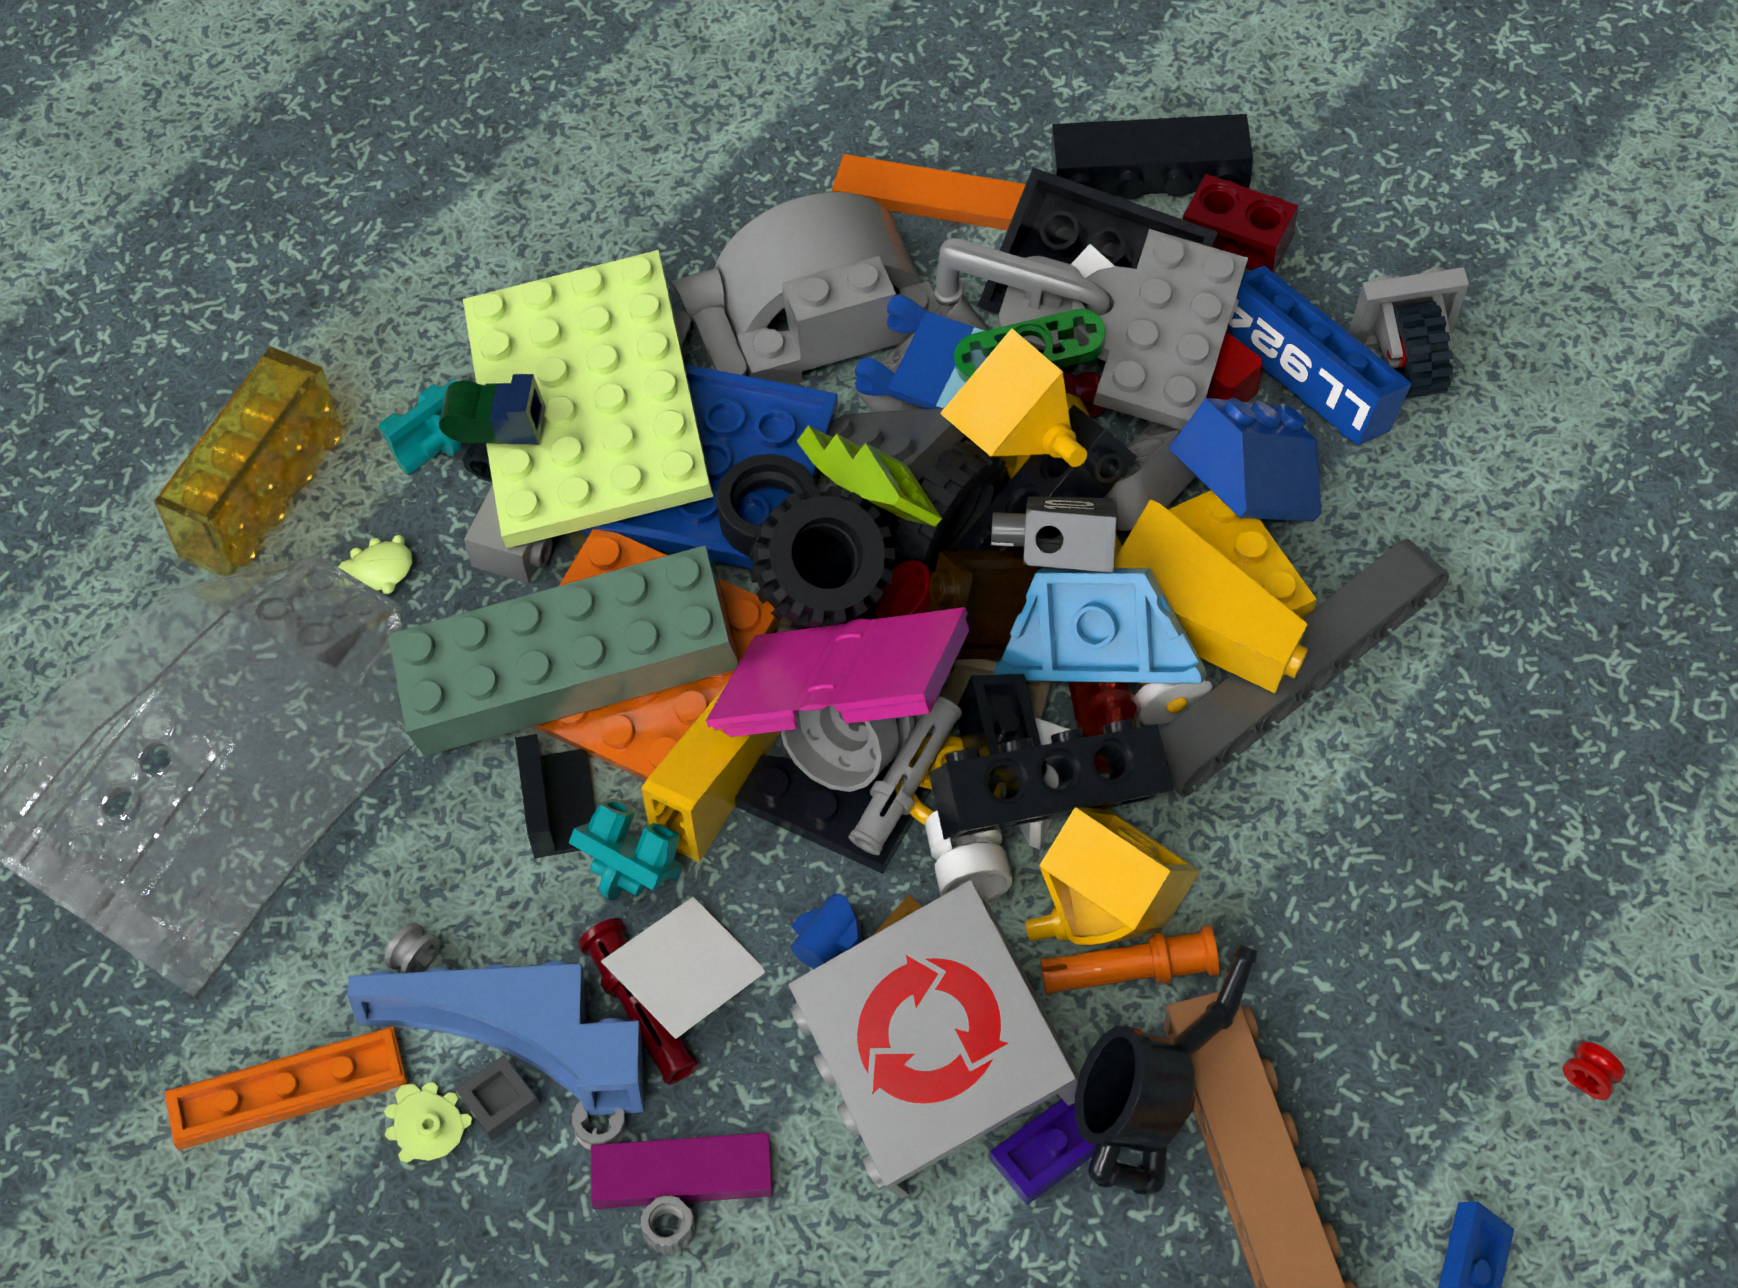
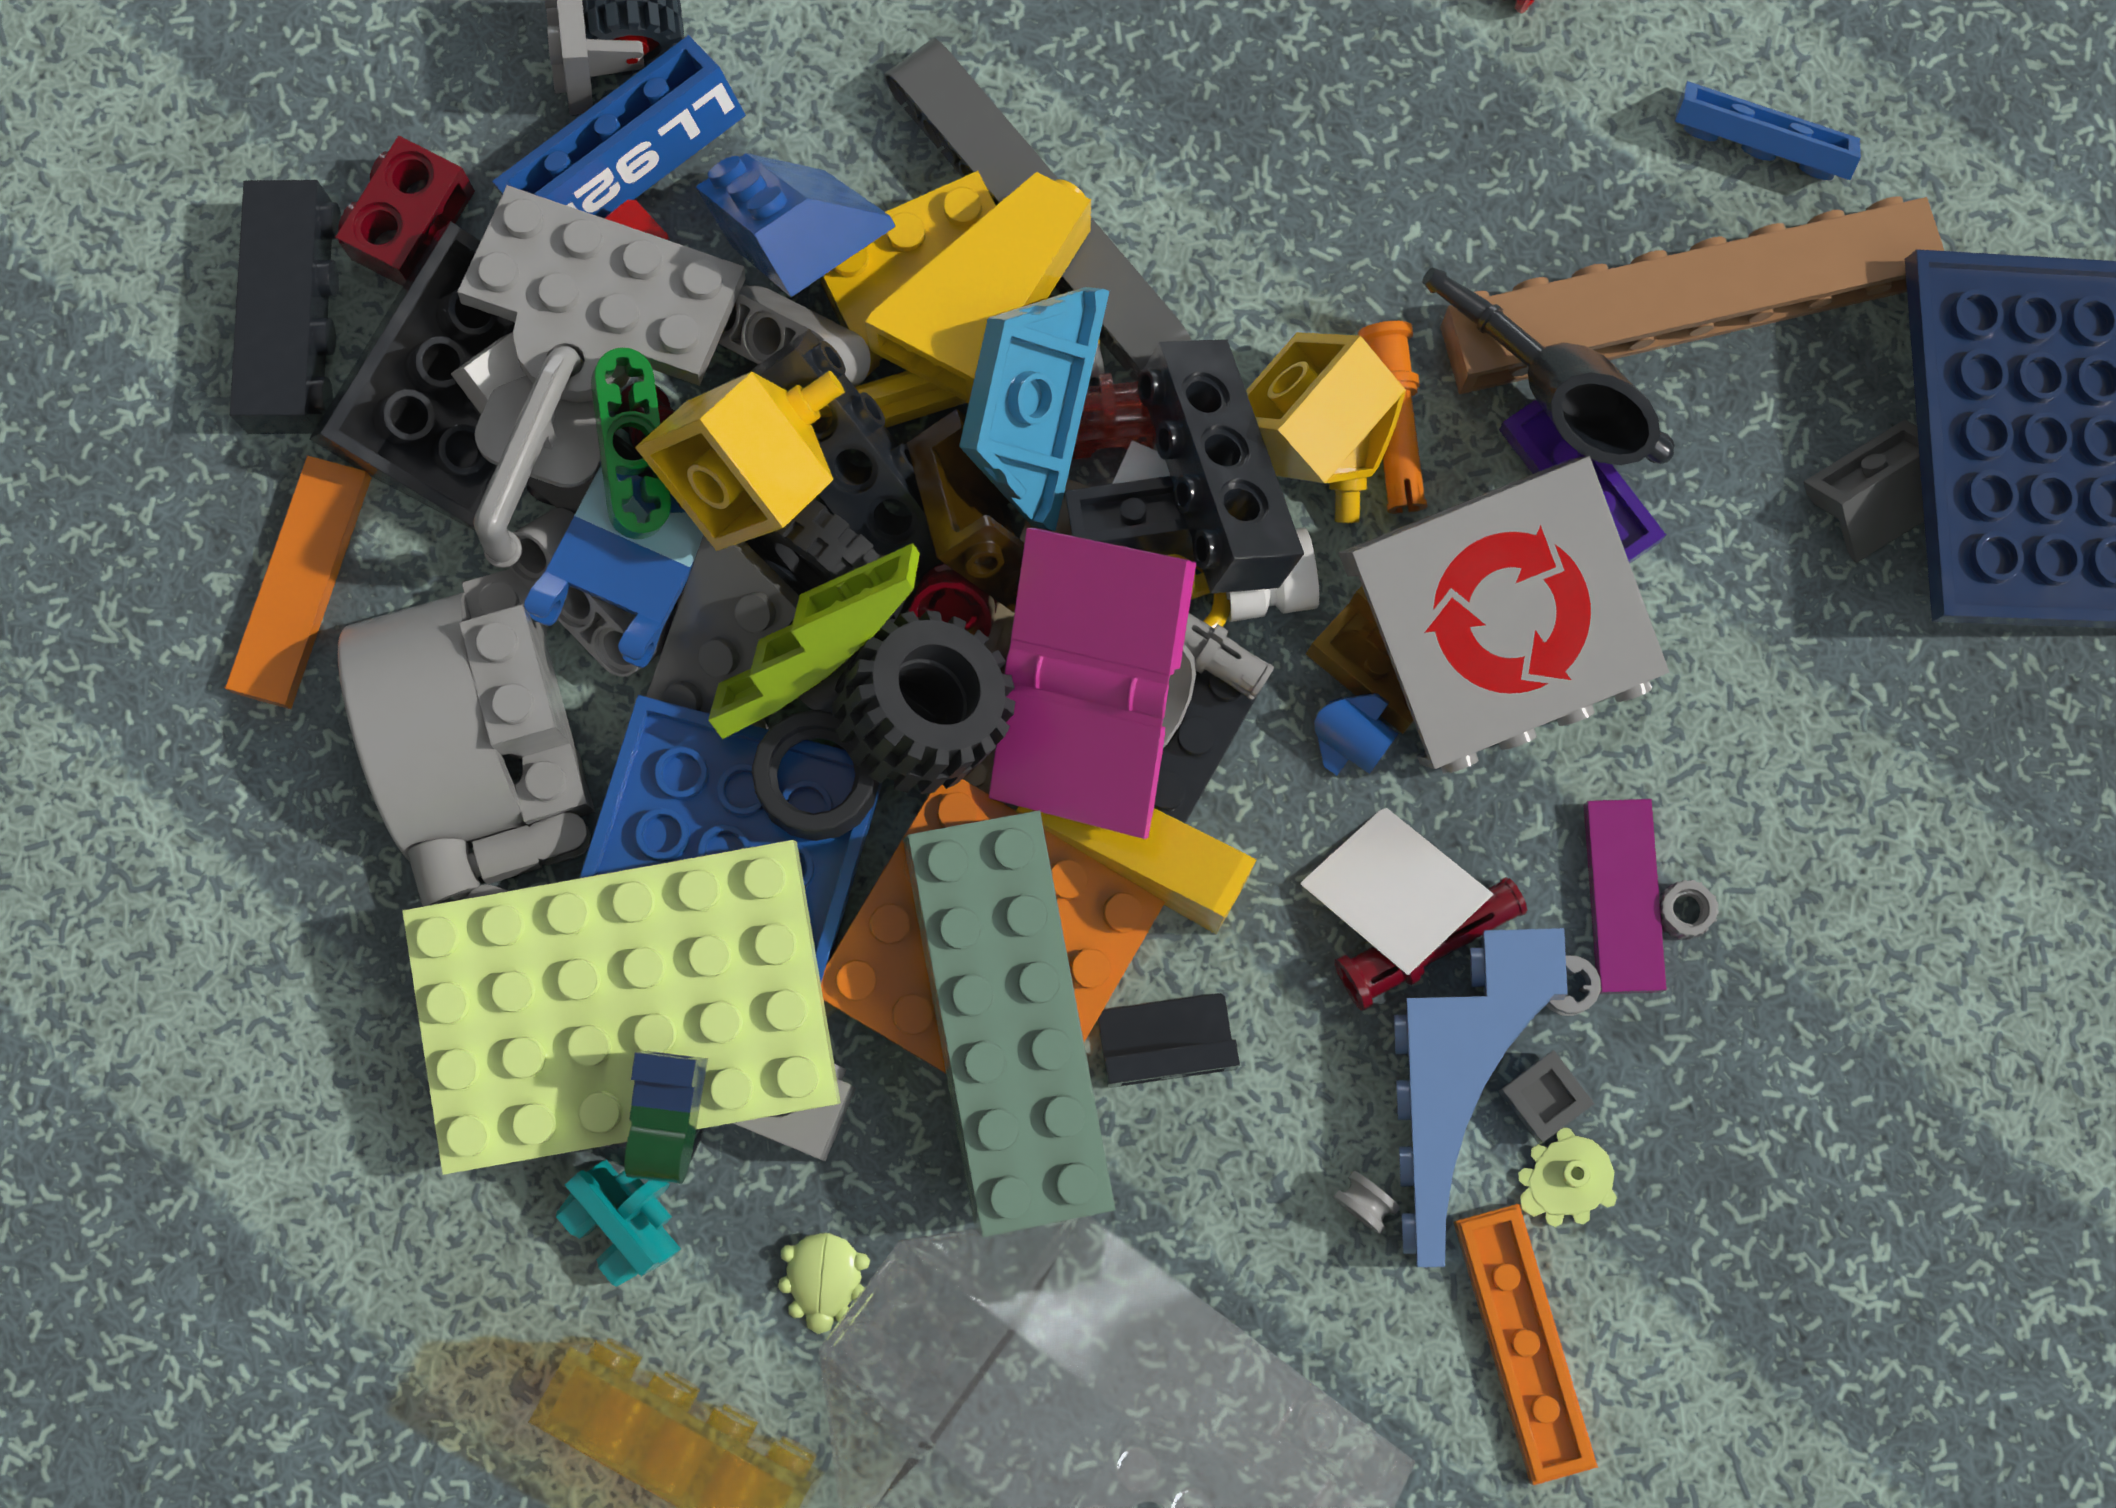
camera: 90 degrees left, 20 degrees up
(623, 859) = (1260, 953): teal hips -> none
(1084, 539) = (925, 409): torso -> none

